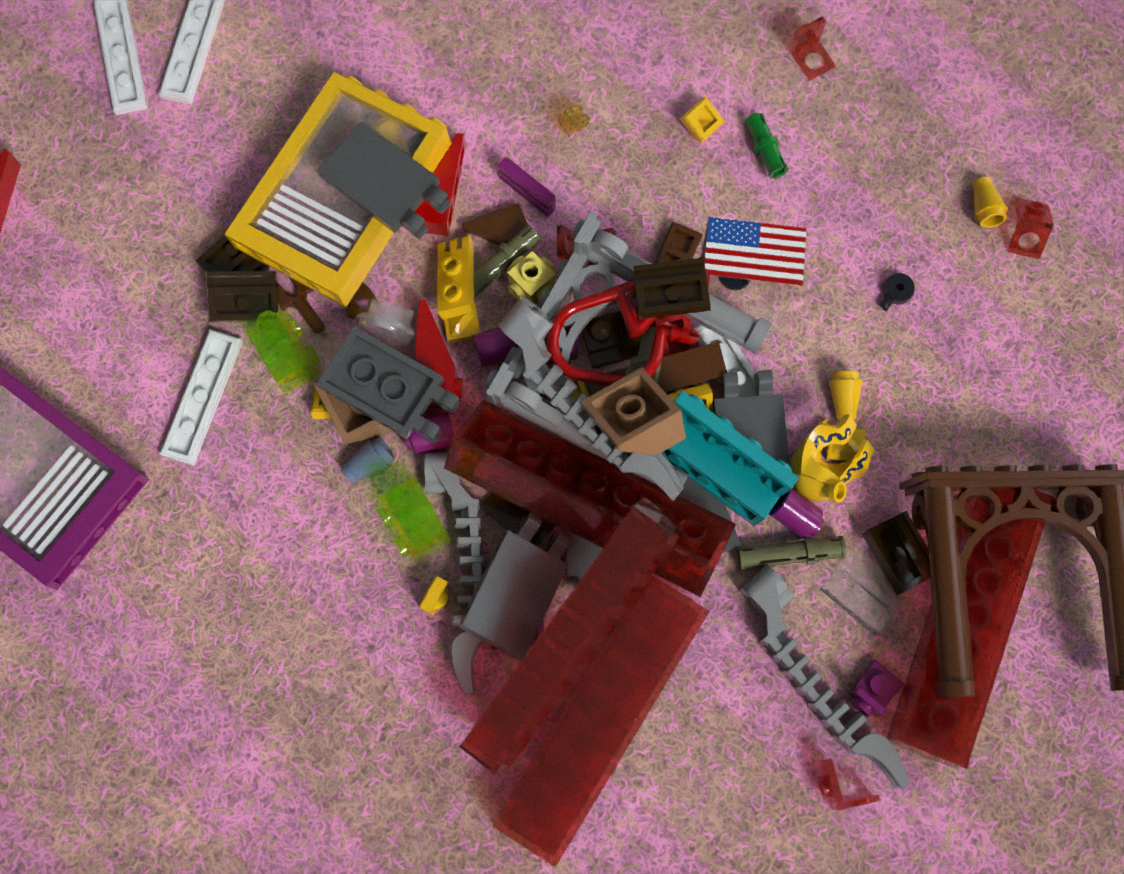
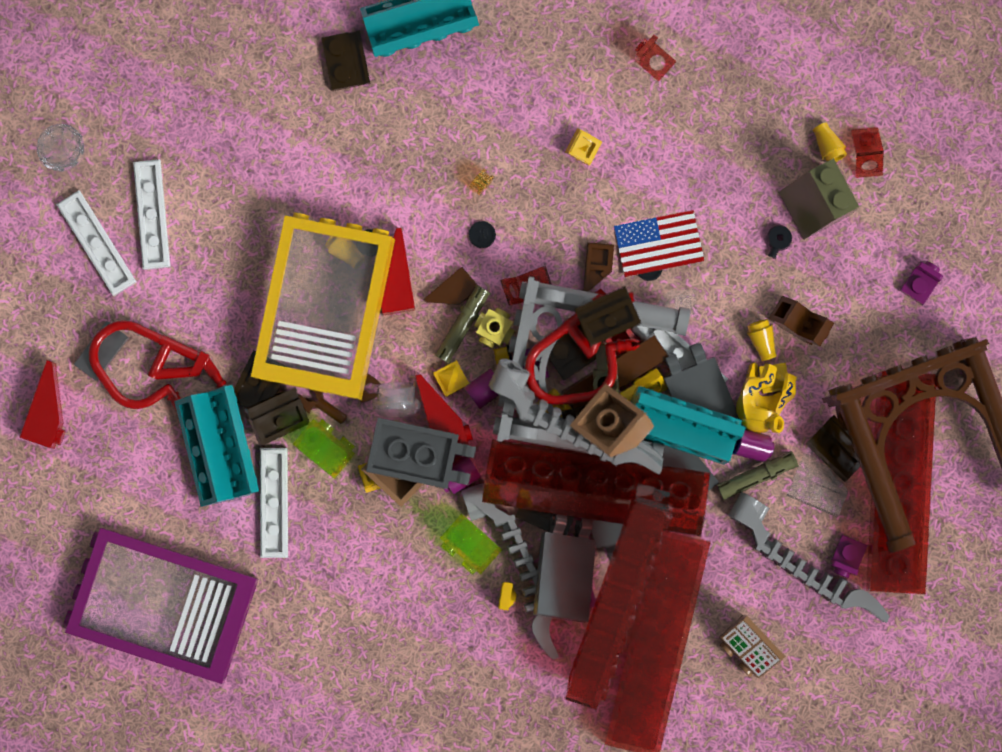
camera: 15 degrees left, 10 degrees up
(75, 166) = (107, 351): none -> flat silver tile
(157, 307) = (216, 446): none -> teal brick
(182, 212) = (156, 371): none -> red piece
(368, 460) = (420, 510): sand blue cone -> none
(383, 180) = (358, 297): dark grey tile -> none
(455, 278) = (435, 346): yellow hinge -> none
(527, 186) = (464, 251): magenta tile -> none
(555, 178) = (482, 234): none -> black piece
(721, 762) = (751, 647): none -> slope
(766, 145) = (641, 152): green pin -> none
(830, 789) = (835, 639): clear red bracket -> none
(897, 387) = (801, 321): none -> reddish brown brick
(965, 251) = (819, 199): none -> olive slope
(1057, 389) = (922, 282): none -> magenta bracket

